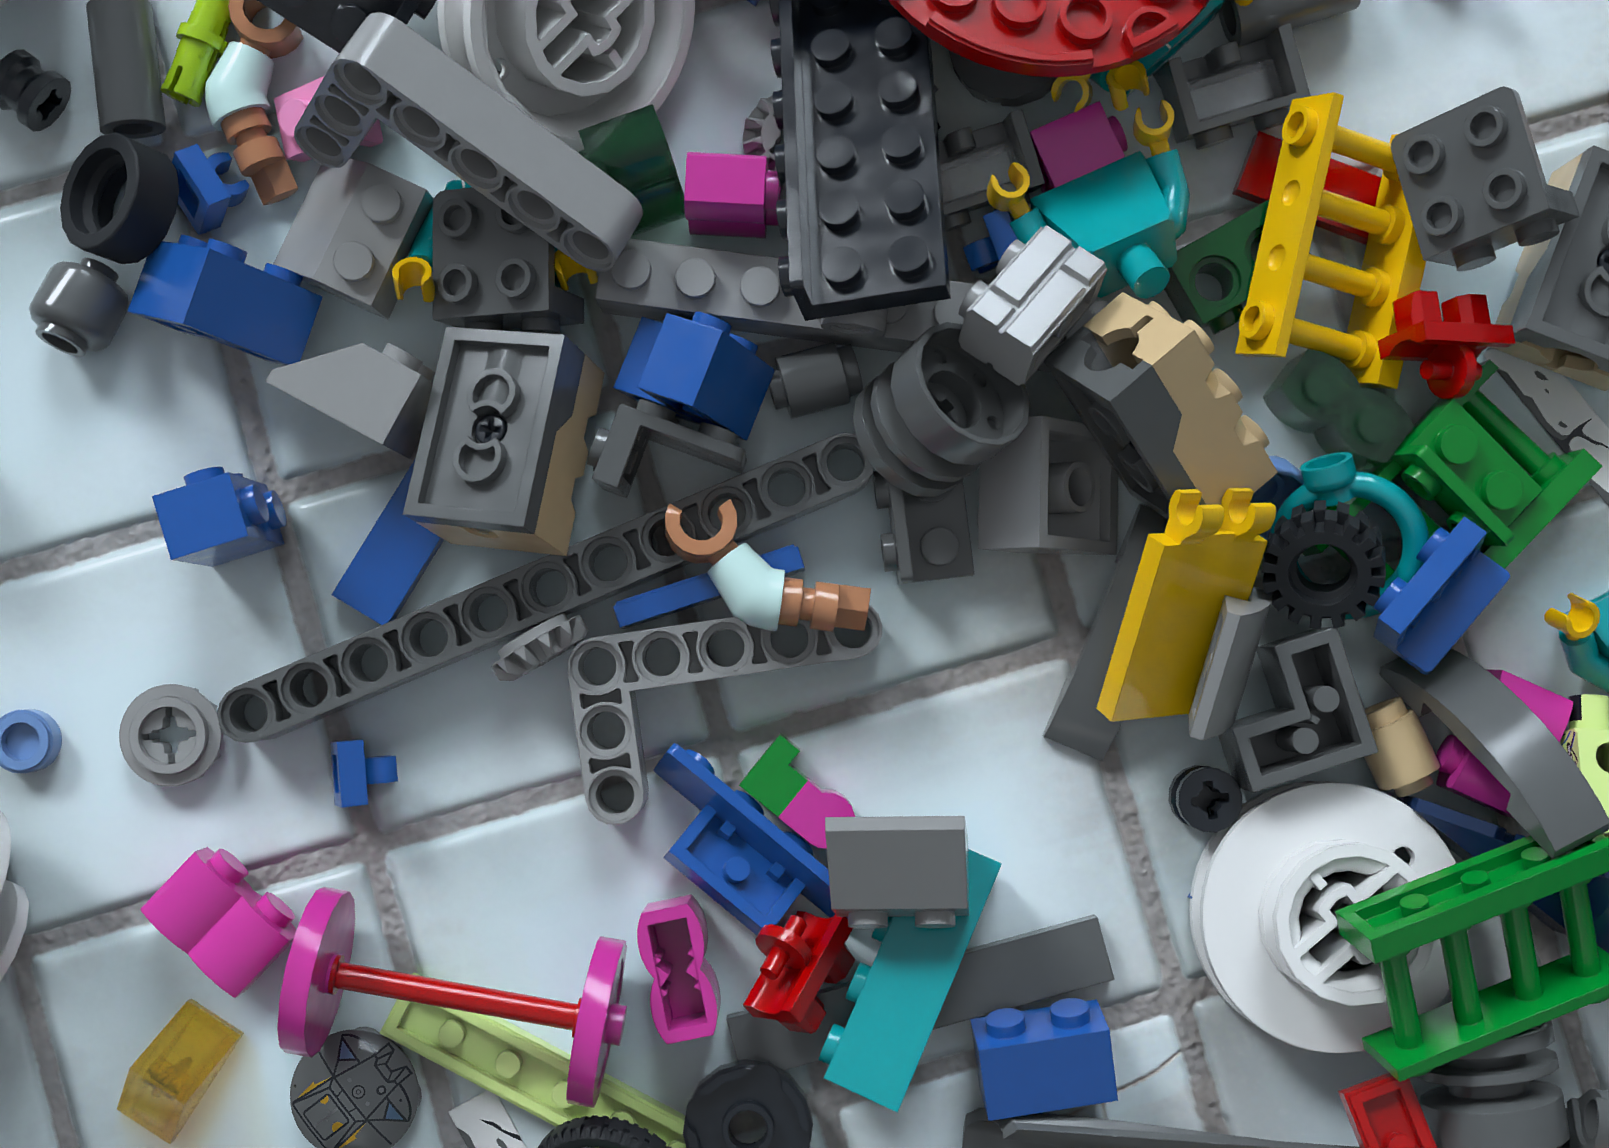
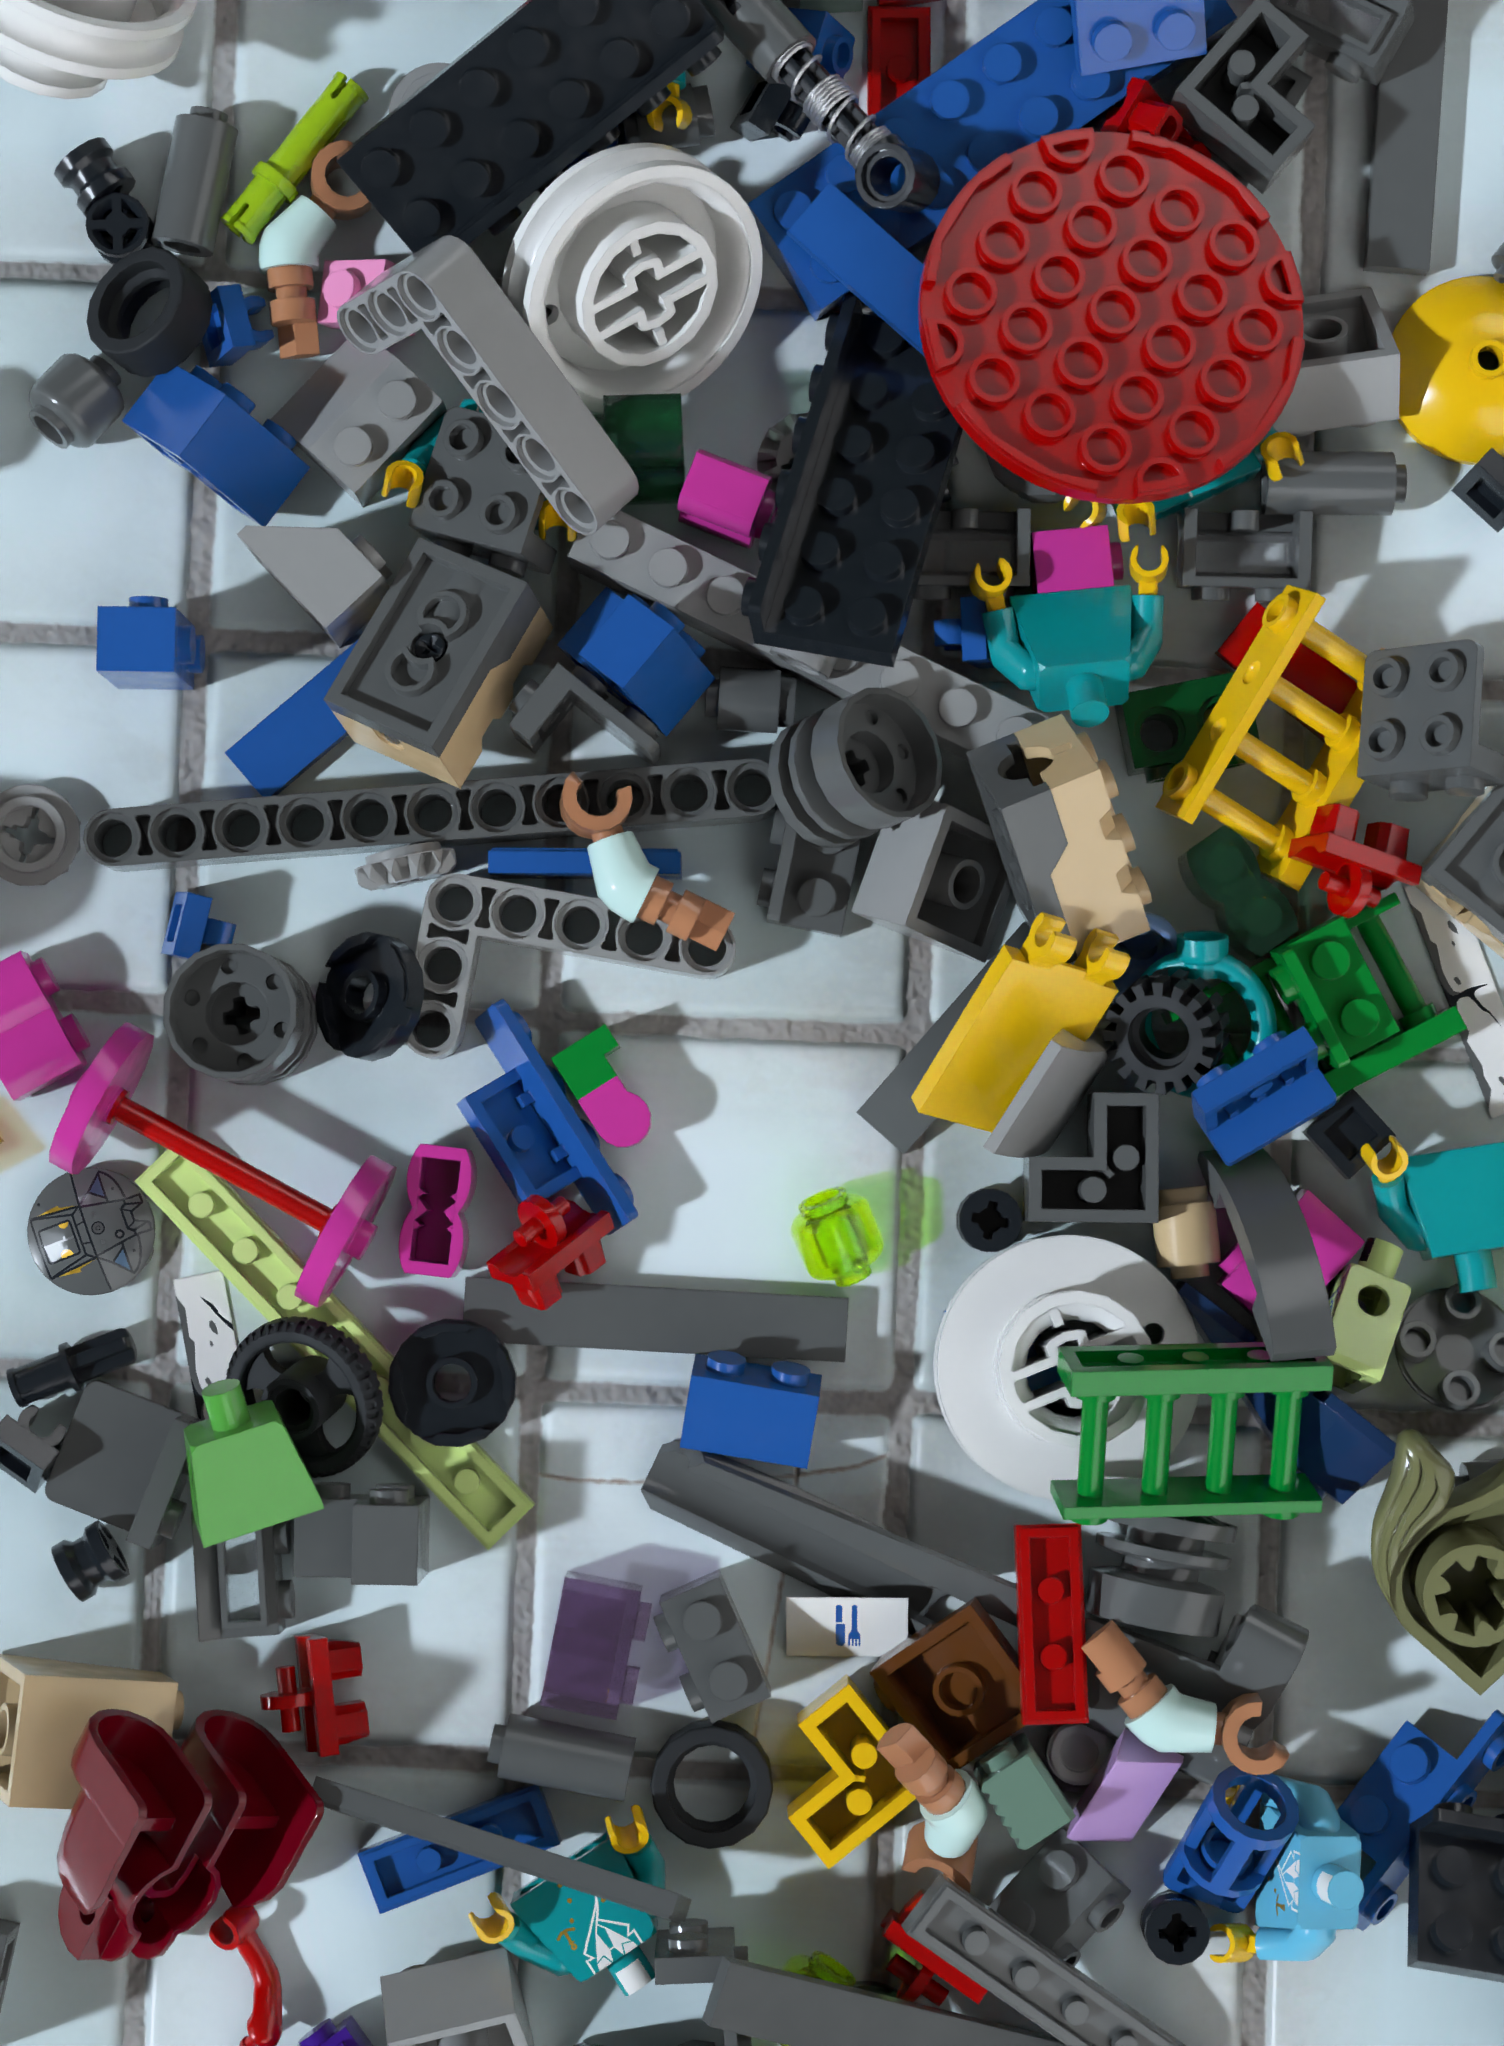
camera: 20 degrees right, 0 degrees up
(56, 123) = (118, 215): none -> black wheel
(390, 850) = (214, 991): none -> dark grey wheel
(571, 778) = (395, 1001): none -> black tile
(898, 869) = (672, 1177): light grey slope -> none
(901, 998) = (654, 1285): teal brick -> none
(1030, 303) = (968, 696): light grey brick -> none
(1067, 862) = (837, 1236): none -> clear neon green head
(1522, 604) = (1345, 1129): none -> black tile

